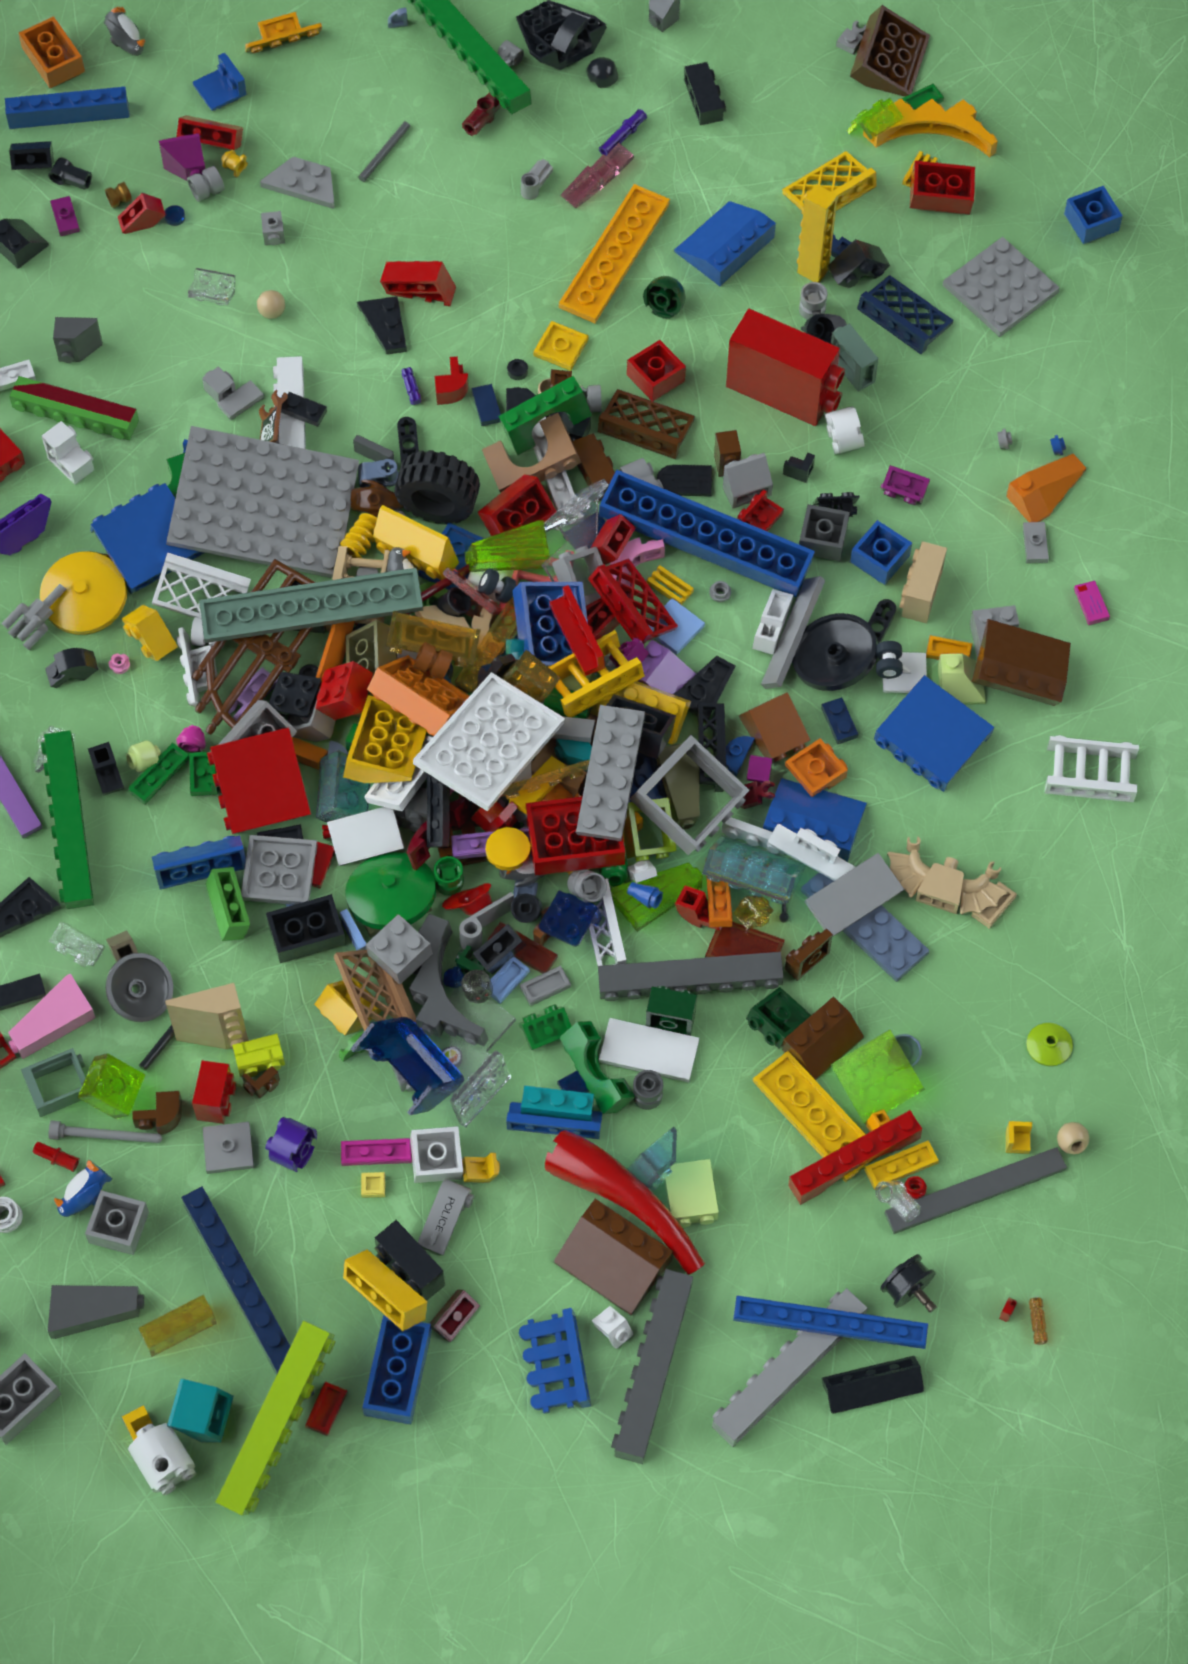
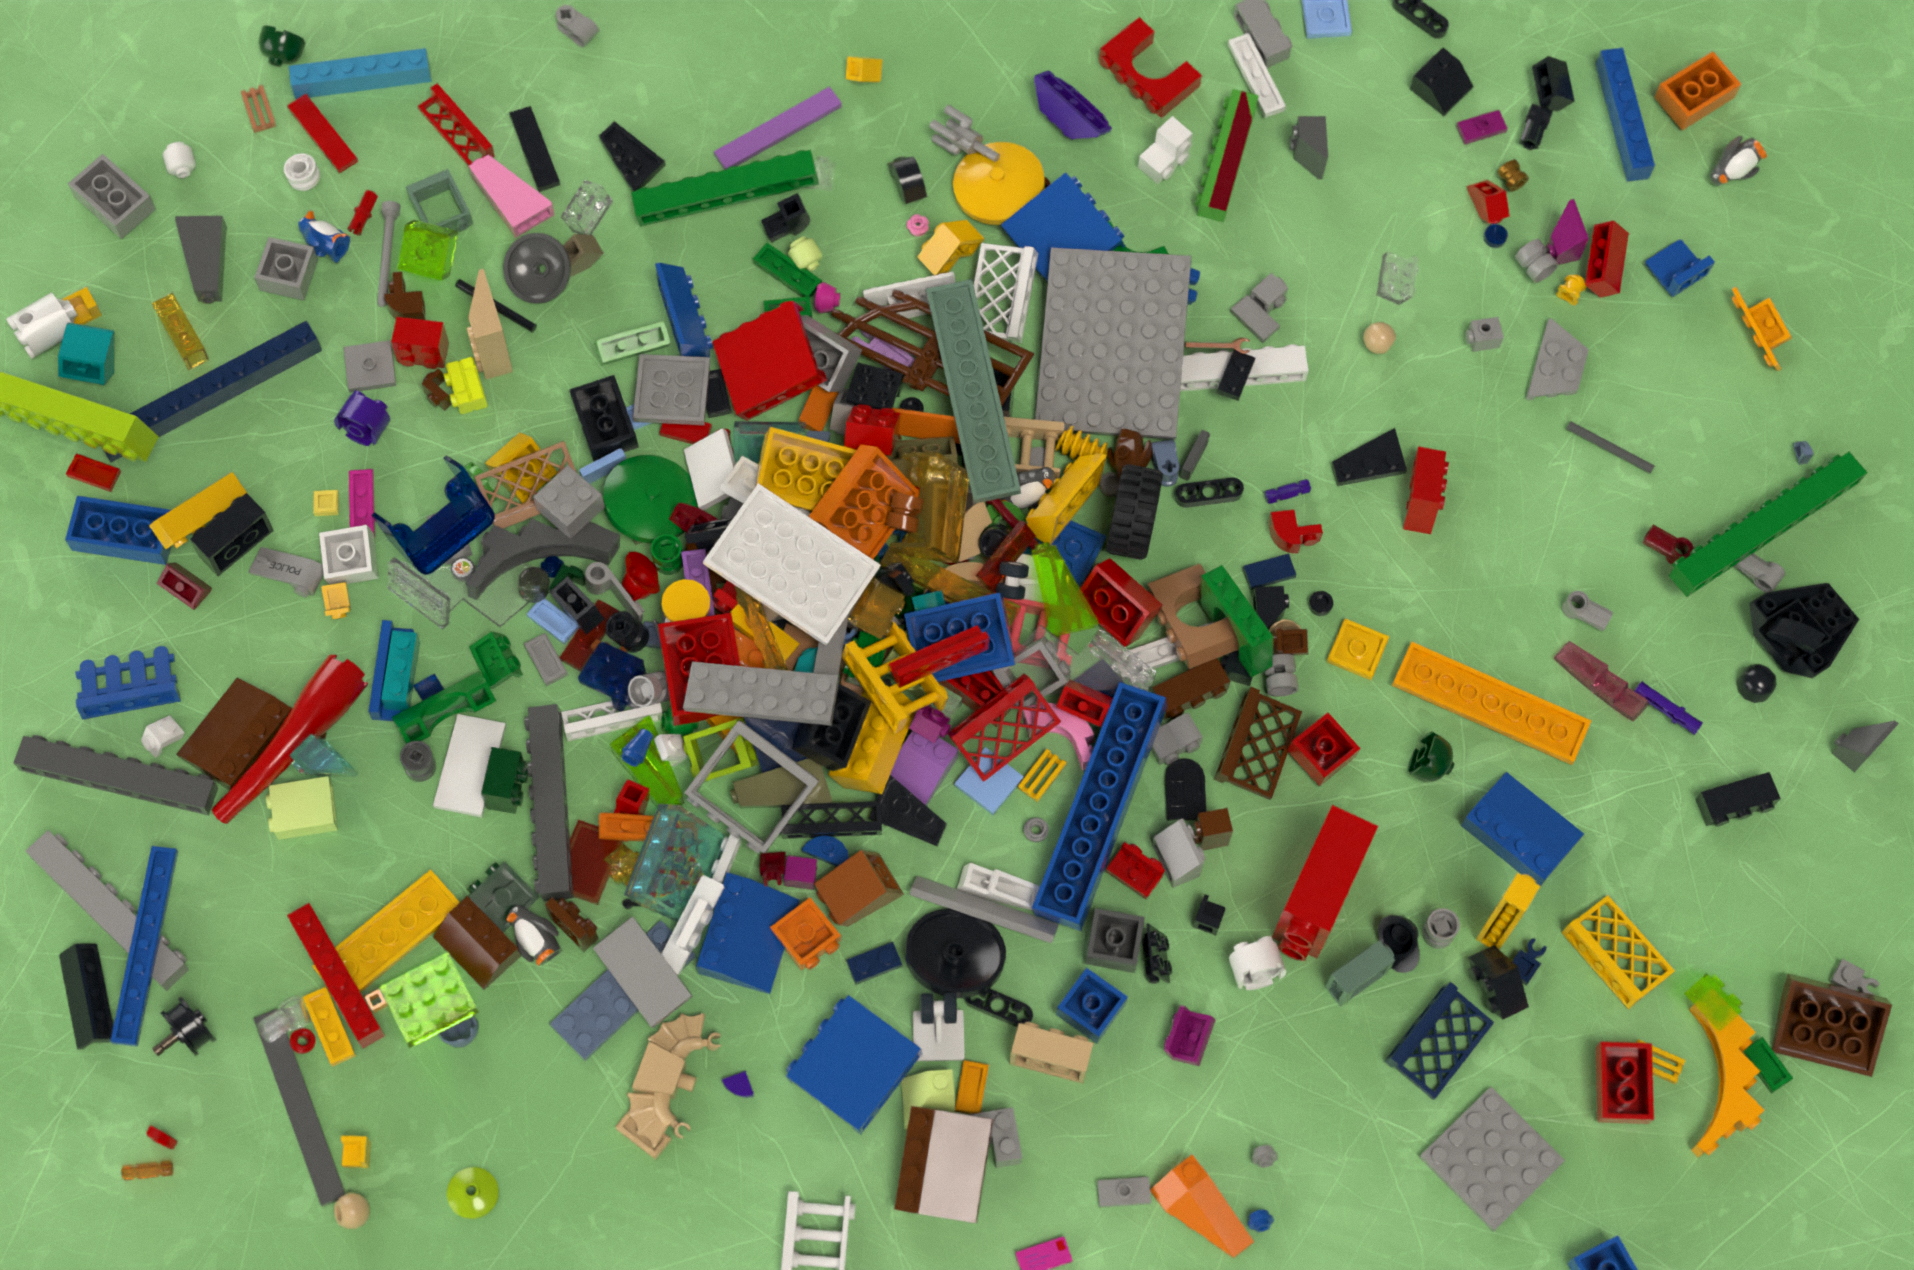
camera: 85 degrees right, 5 degrees up
(818, 986) = (534, 935): none -> animal
(949, 827) = (739, 1085): none -> dark purple tile

